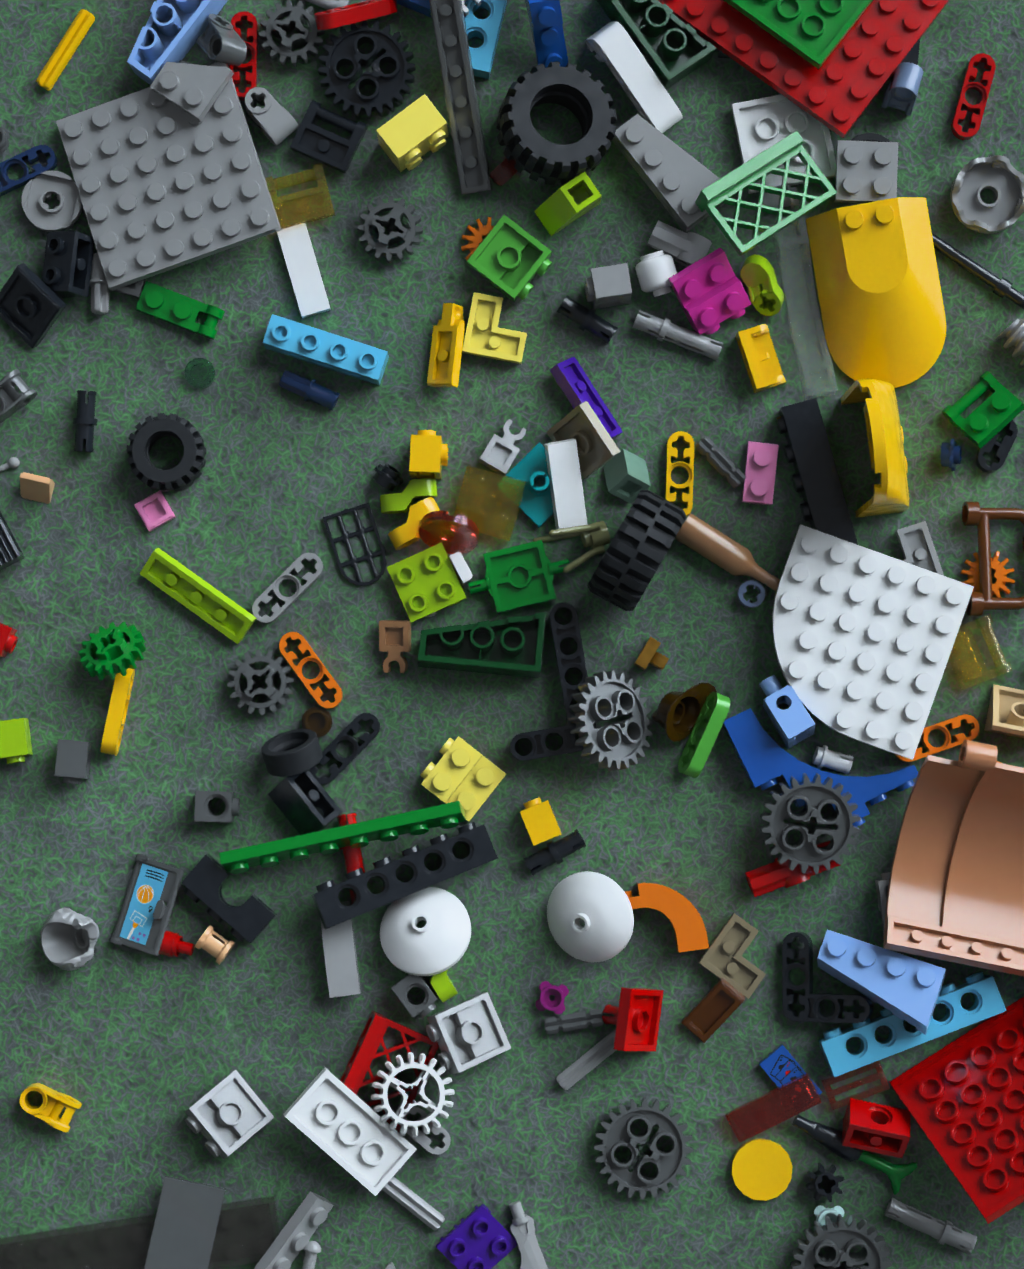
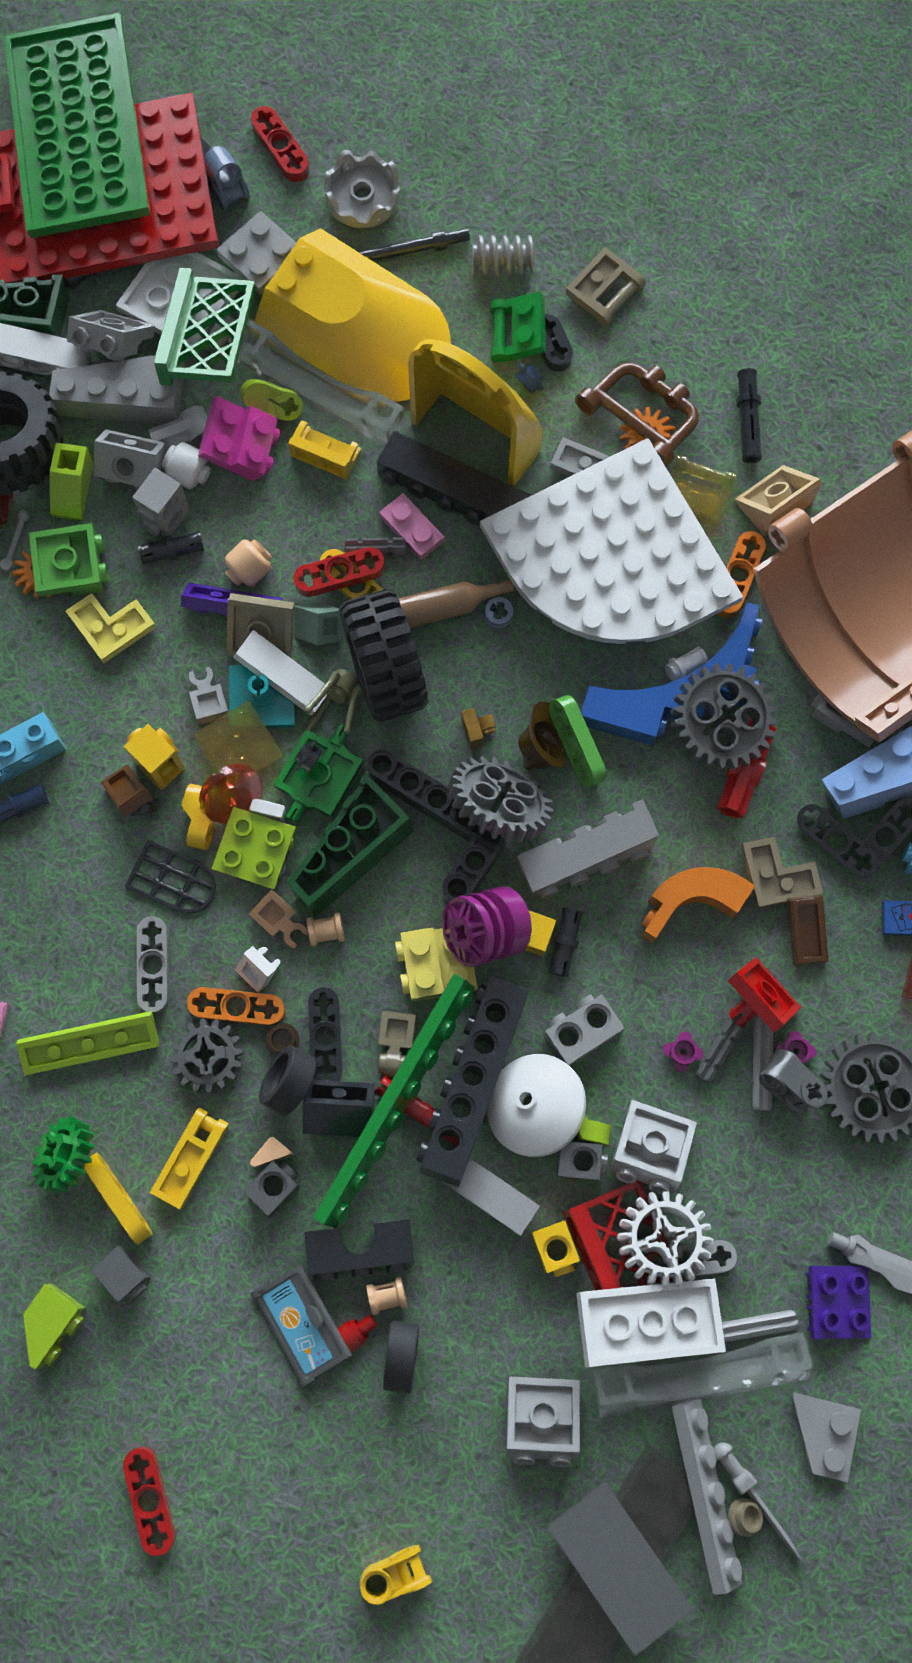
camera: 45 degrees left, 10 degrees down
(68, 939) = (266, 1420): light grey hair -> none
(184, 734) = (189, 1159): none -> yellow plate
(184, 989) = (401, 1357): none -> black tyre
(237, 784) = (271, 1151): none -> light nougat slope
(347, 660) = (256, 969): none -> white tile
(348, 1014) = (559, 1232): none -> yellow brick
(371, 1214) = (656, 1385): none -> clear arch
(386, 458) = (126, 790): none -> reddish brown tile
(390, 794) = (396, 1034): none -> dark tan plate
(401, 502) = (171, 813): lime piece -> none
(416, 682) = (325, 929): none -> light nougat bush
(446, 348) = (88, 670): yellow hinge -> none
(471, 214) = (6, 563): none -> light grey hinge
(502, 925) = (587, 1036): none -> light grey brick
(513, 792) = (486, 926): none -> magenta wheel
(521, 562) = (308, 756): none -> black plate
(594, 1089) = (789, 1082): none -> dark grey piece
(601, 906) = (650, 939): white dish -> none
(622, 1081) = (796, 1041): none -> magenta plate
(623, 229) = (113, 448): none -> light grey brick
(625, 385) = (248, 563): none -> light nougat head
(630, 811) = (588, 852): none -> light grey wedge
(671, 332) = (237, 498): light grey pin -> none
(677, 469) = (332, 584): none -> red beam
(703, 124) = (108, 333): none -> light grey plate
(792, 723) = (618, 662): light blue torso -> none

